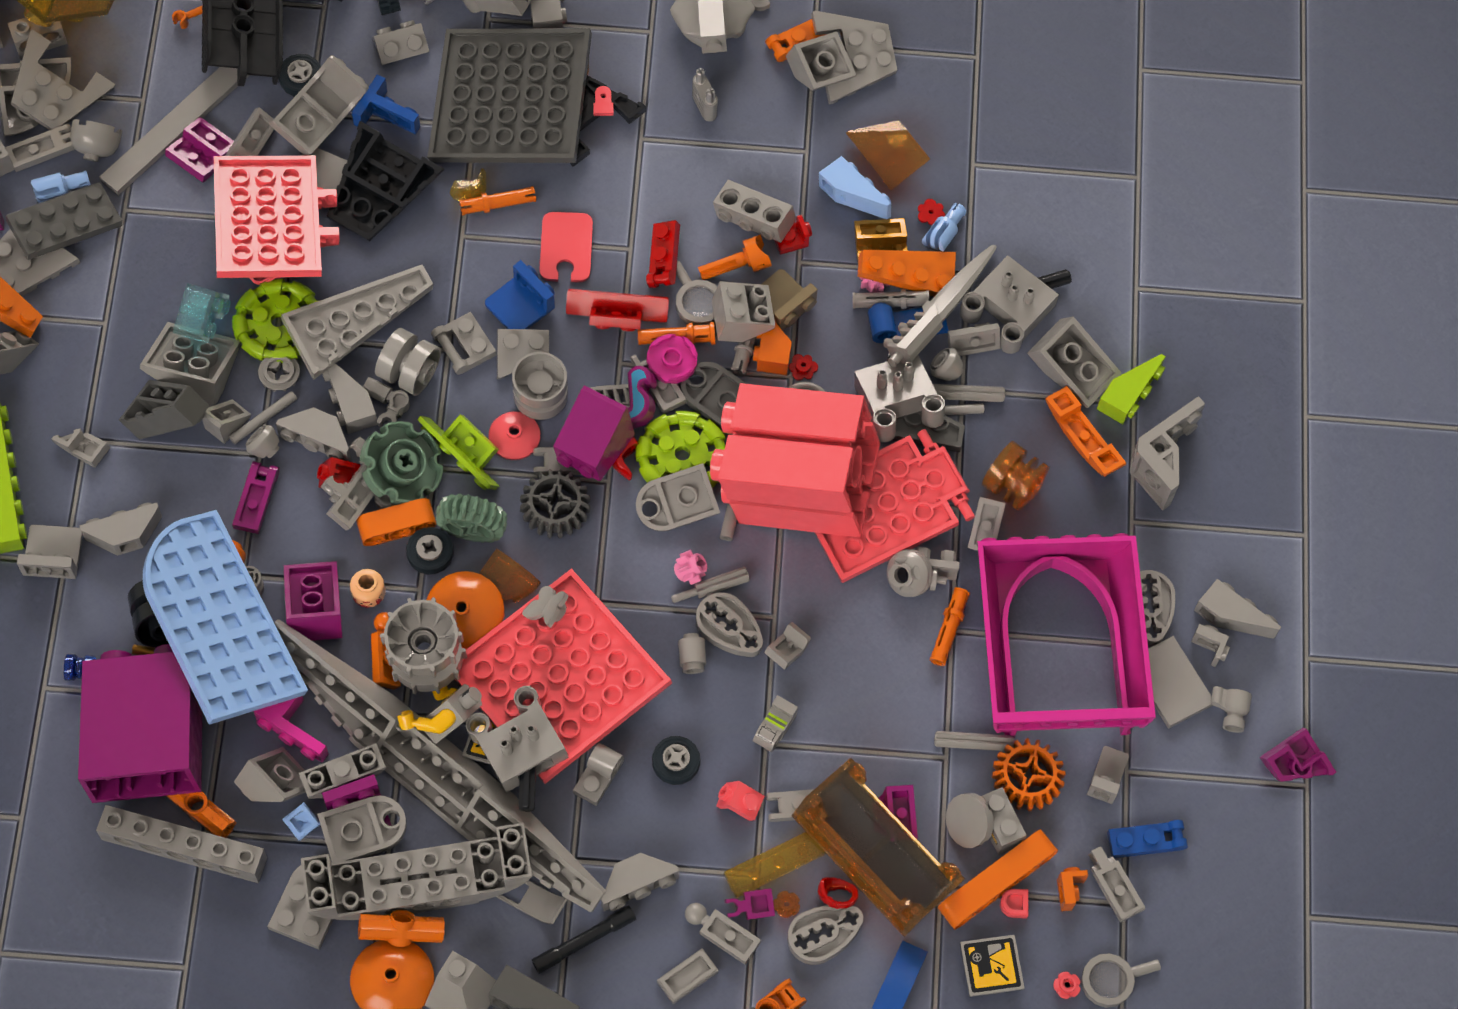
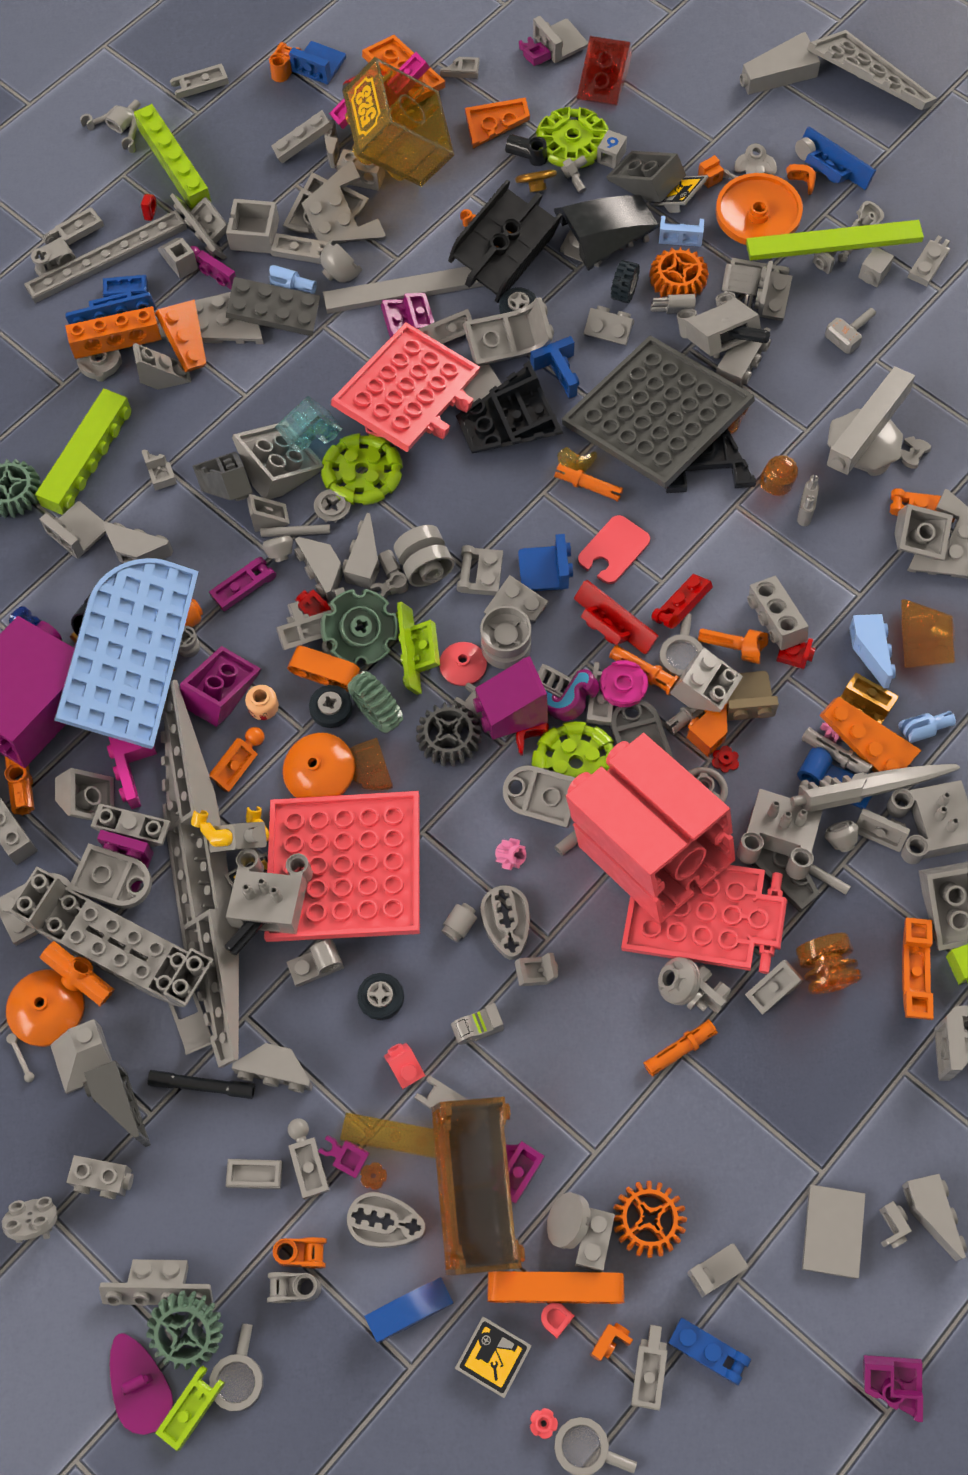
camera: 45 degrees right, 0 degrees up
(301, 821) = (78, 840): light blue tile -> none
(340, 323) = (397, 496): light grey wing -> none
(419, 623) = (249, 751): light grey piece -> none
(549, 606) = (373, 807): light grey animal -> none
(603, 106) = (722, 461): coral piece -> none
(663, 85) = (780, 475): none -> clear orange helmet
(714, 584) = (520, 881): light grey axle -> none
(832, 883) = (417, 1184): red piece -> none
(930, 207) = (927, 701): red plant -> none
(970, 392) = (844, 869): light grey axle -> none
(972, 740) = (627, 1156): light grey axle -> none
(1113, 576) = (848, 1100): dark pink panel -> none
(1163, 602) = (879, 1159): light grey piece -> none
(1235, 704) = (874, 1294): light grey piece -> none

